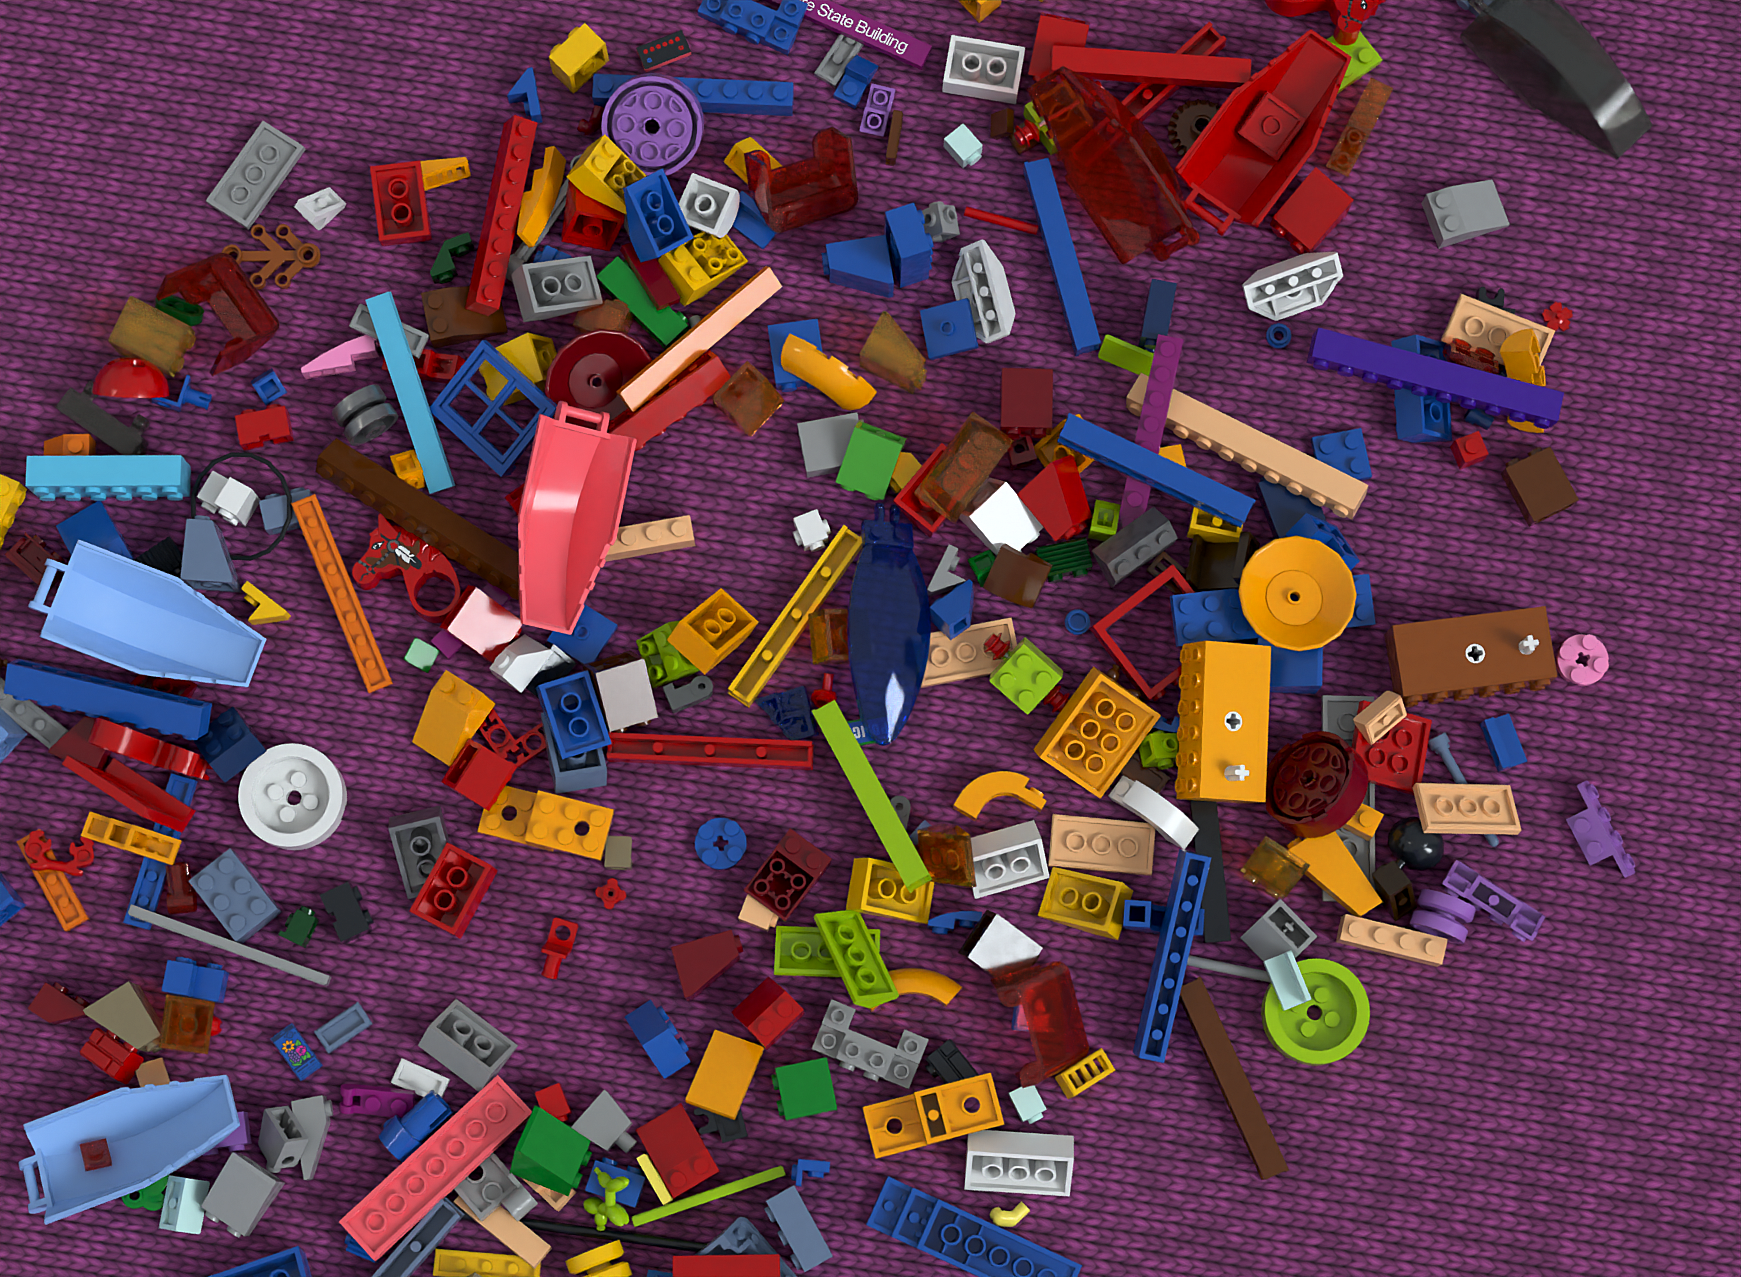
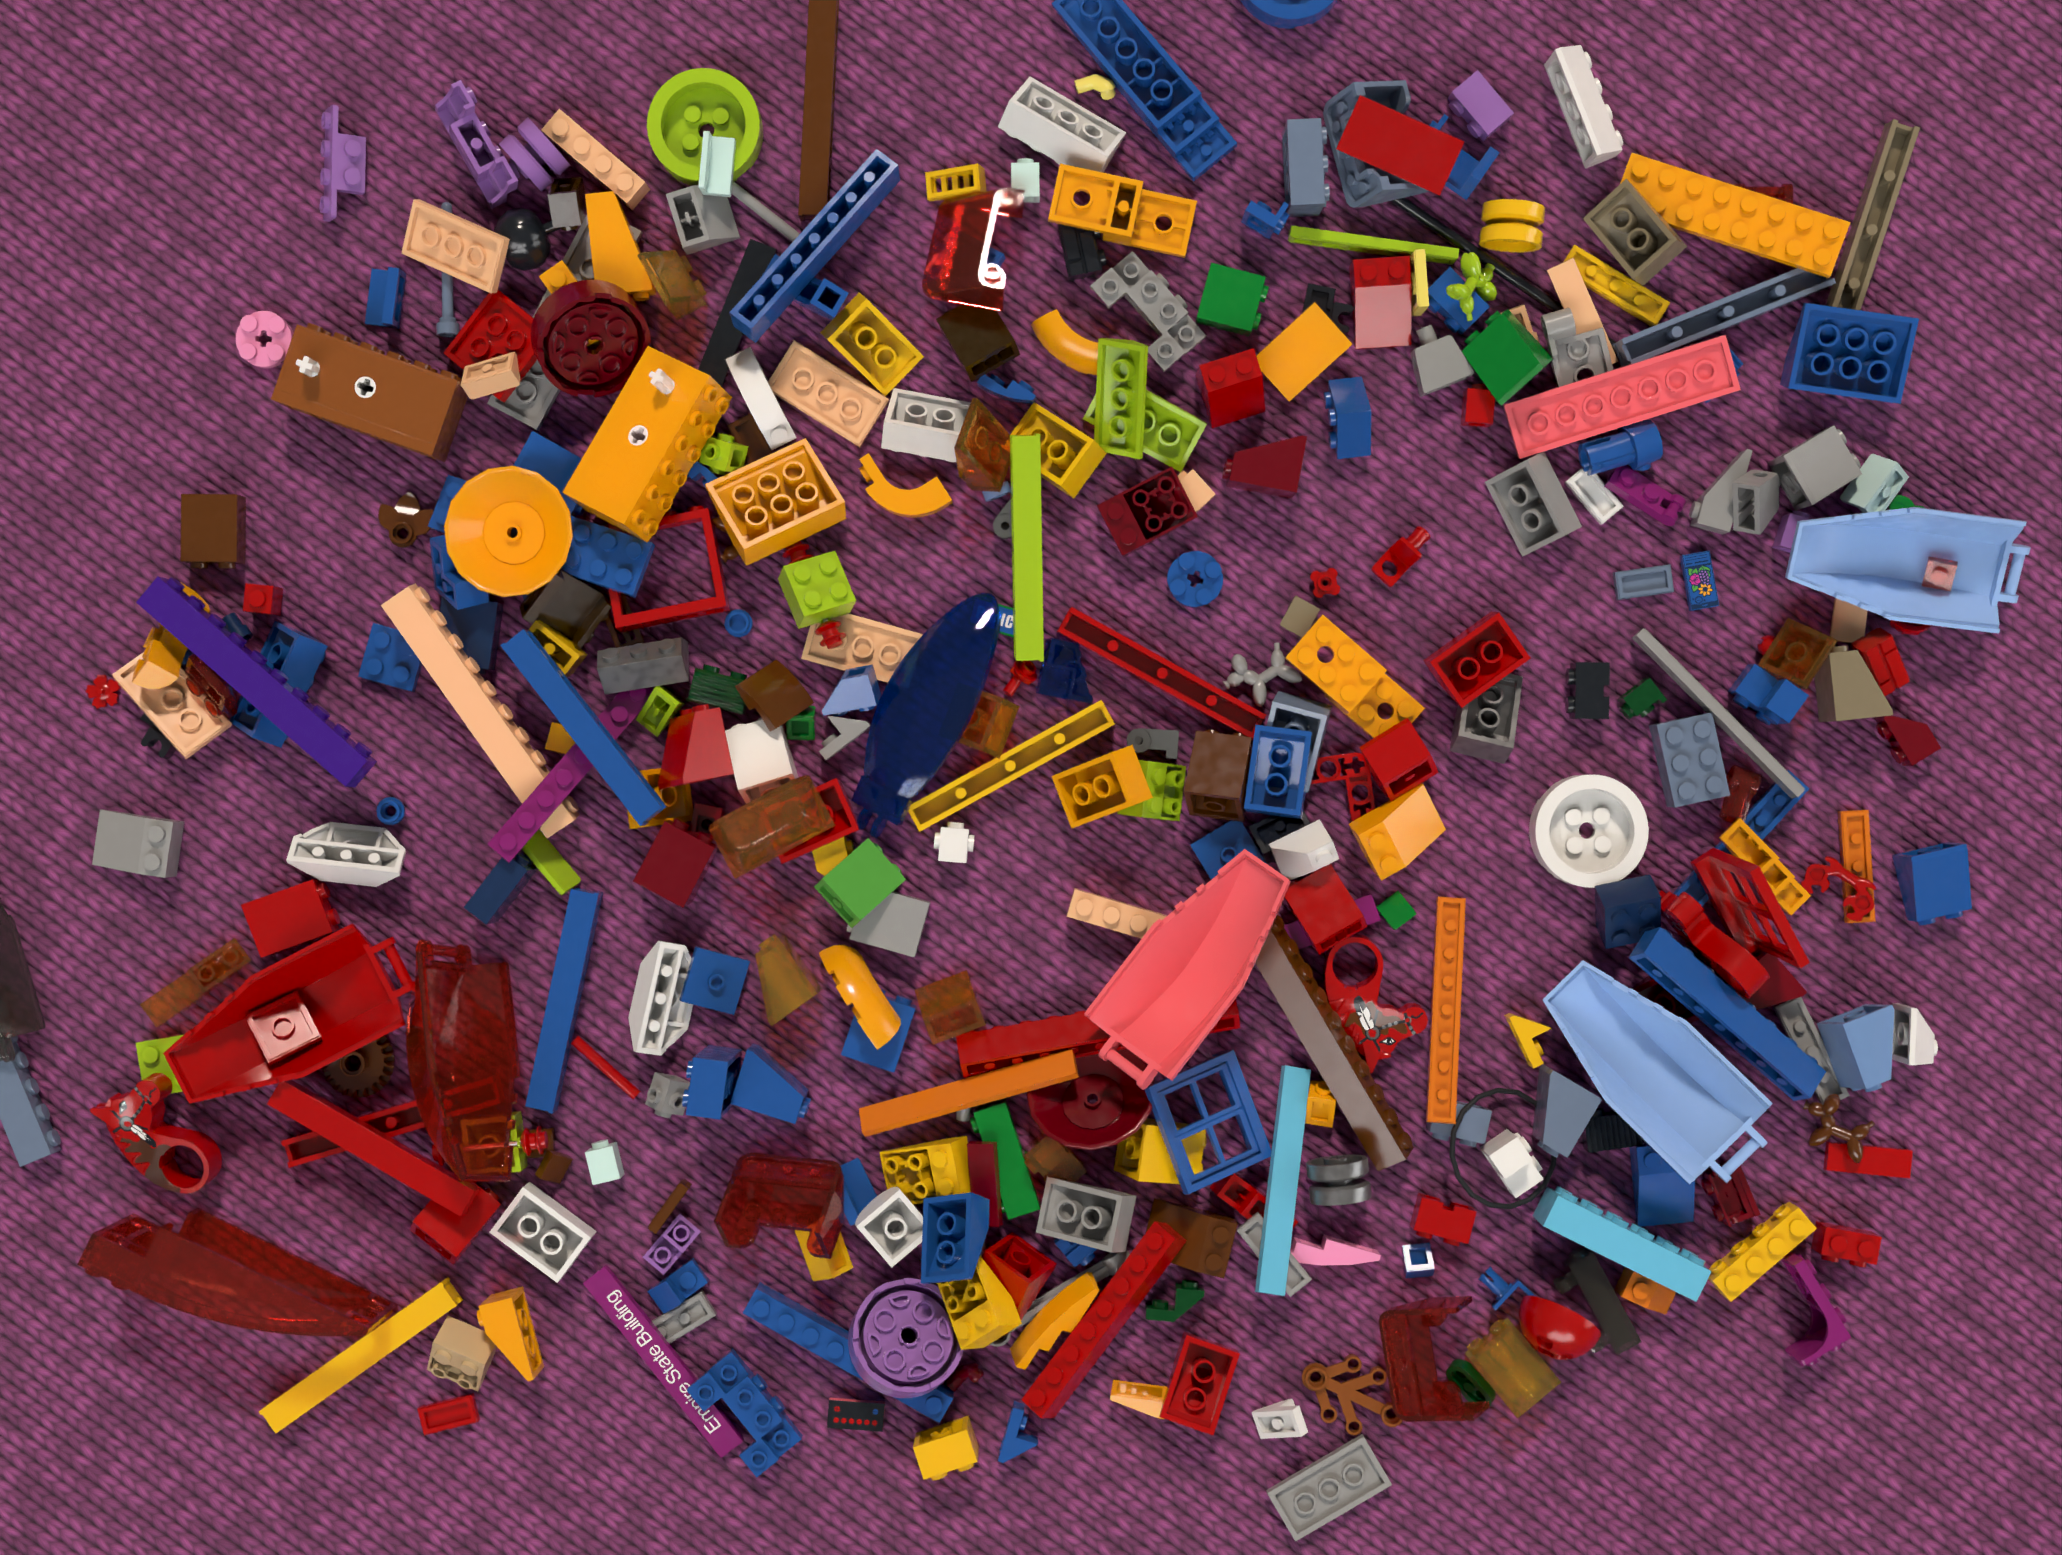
camera: 155 degrees left, 10 degrees up
(626, 785) = (1258, 681): none -> light grey piece
(1390, 575) = (405, 515): none -> reddish brown plate

